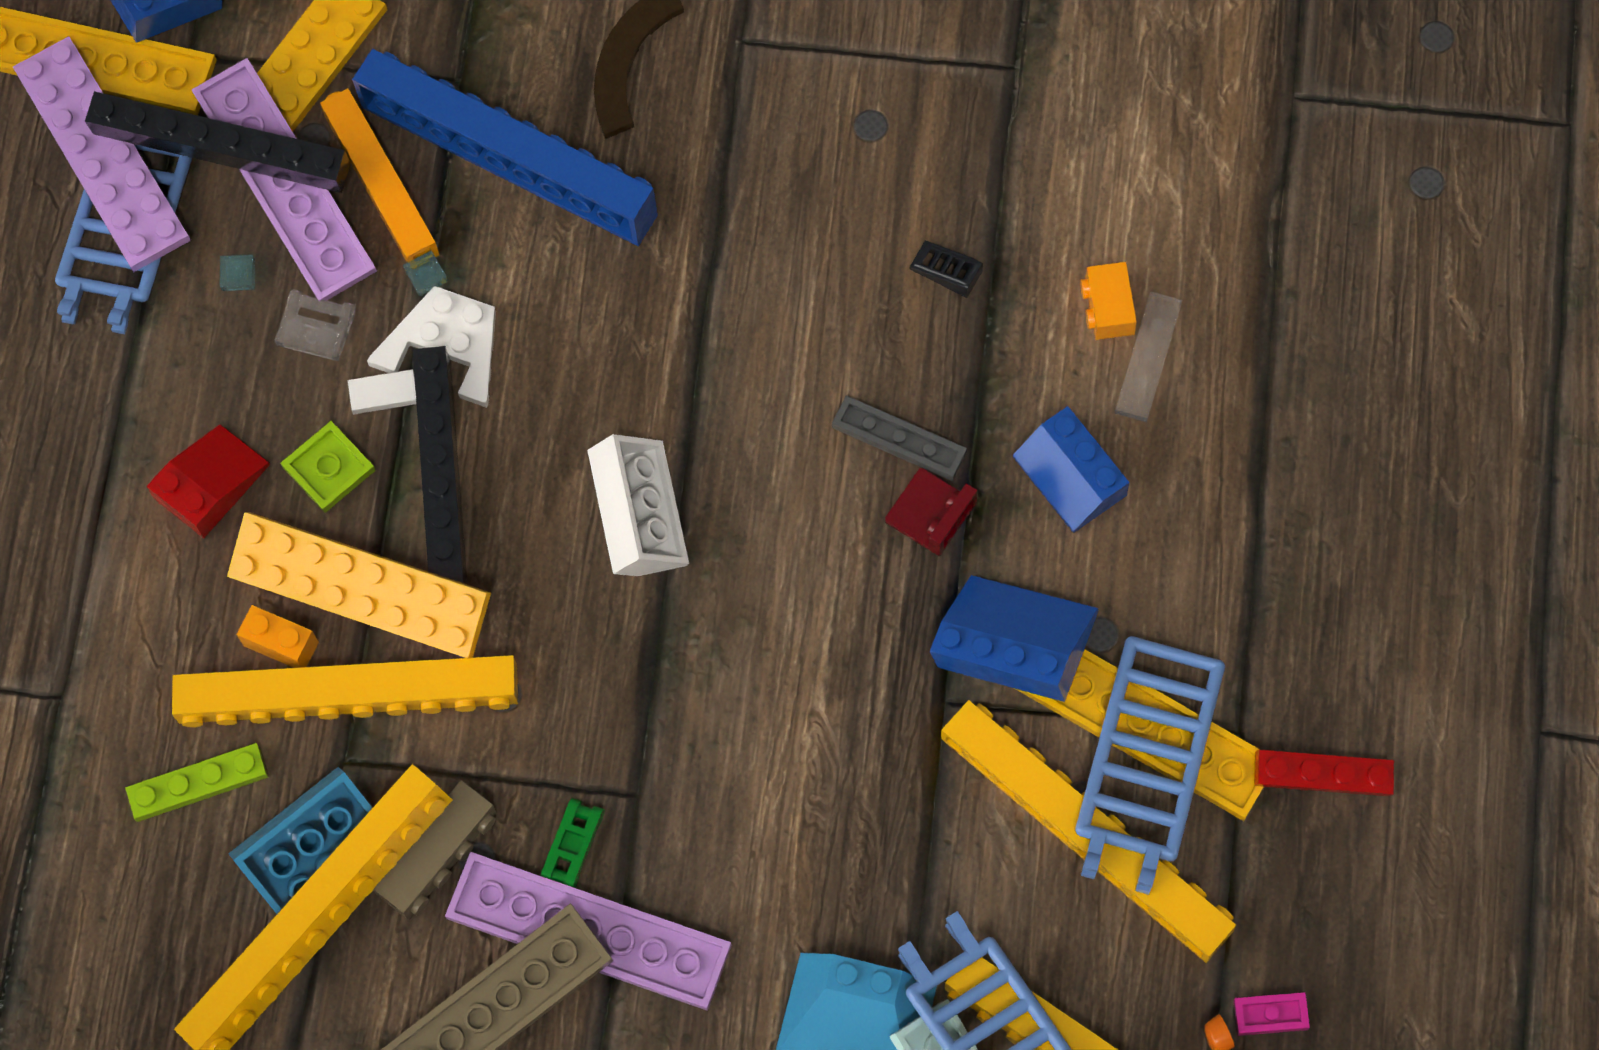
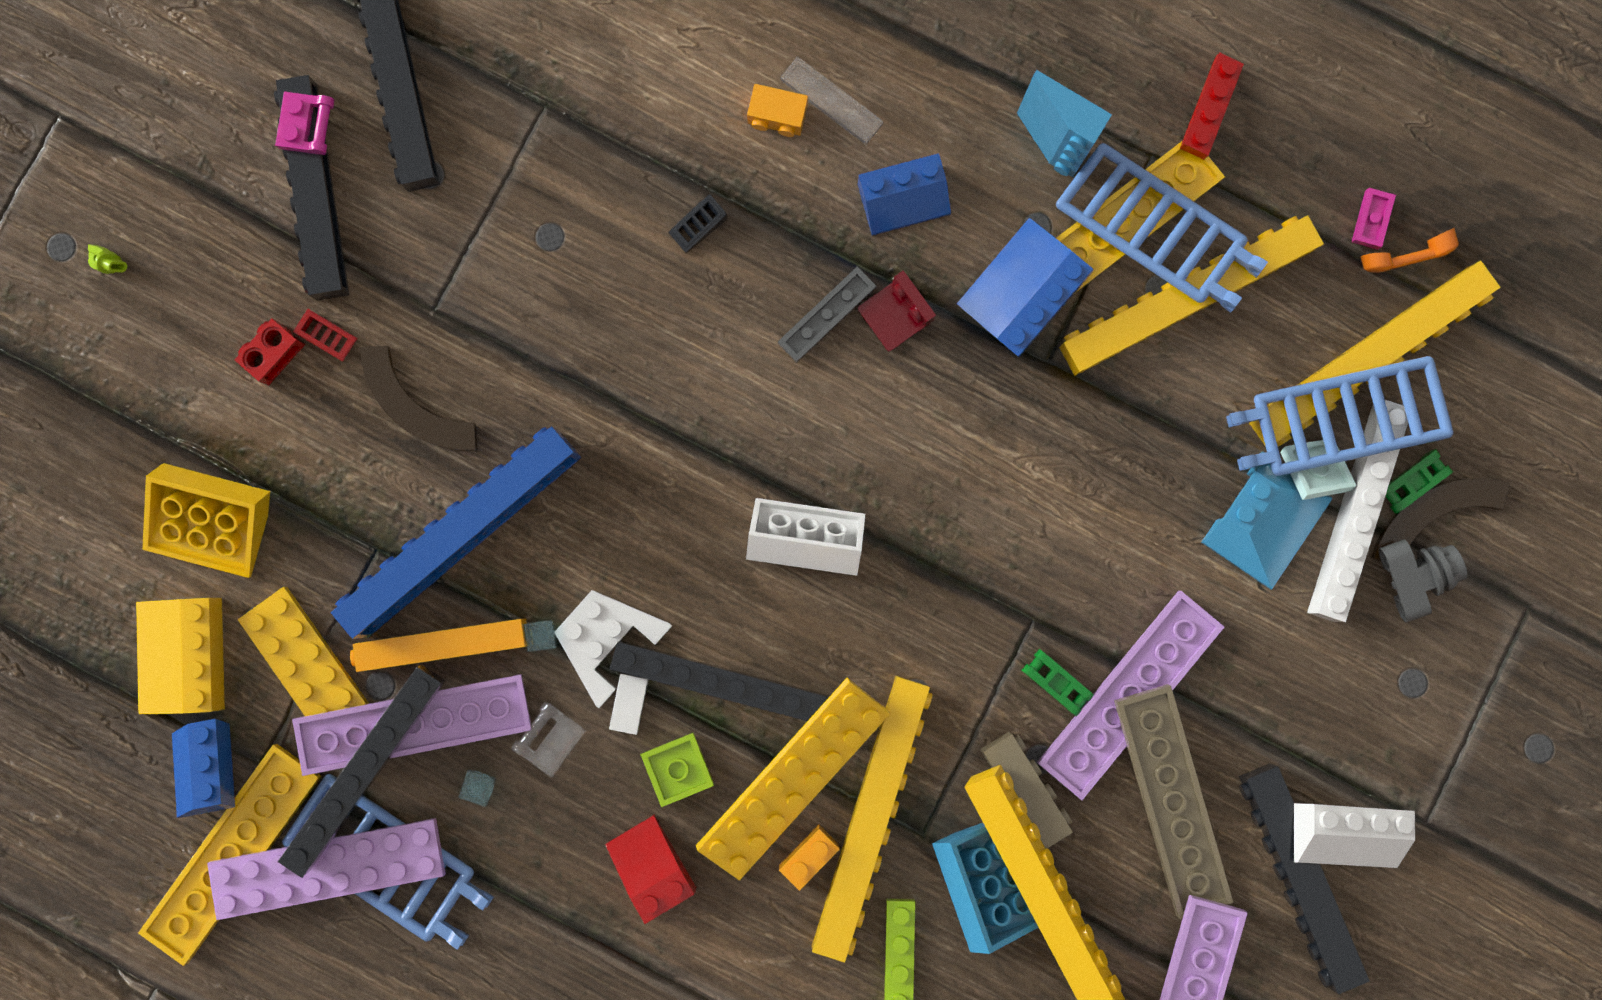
camera: 75 degrees left, 15 degrees up
(1207, 603) = (1061, 122): none -> dark azure slope

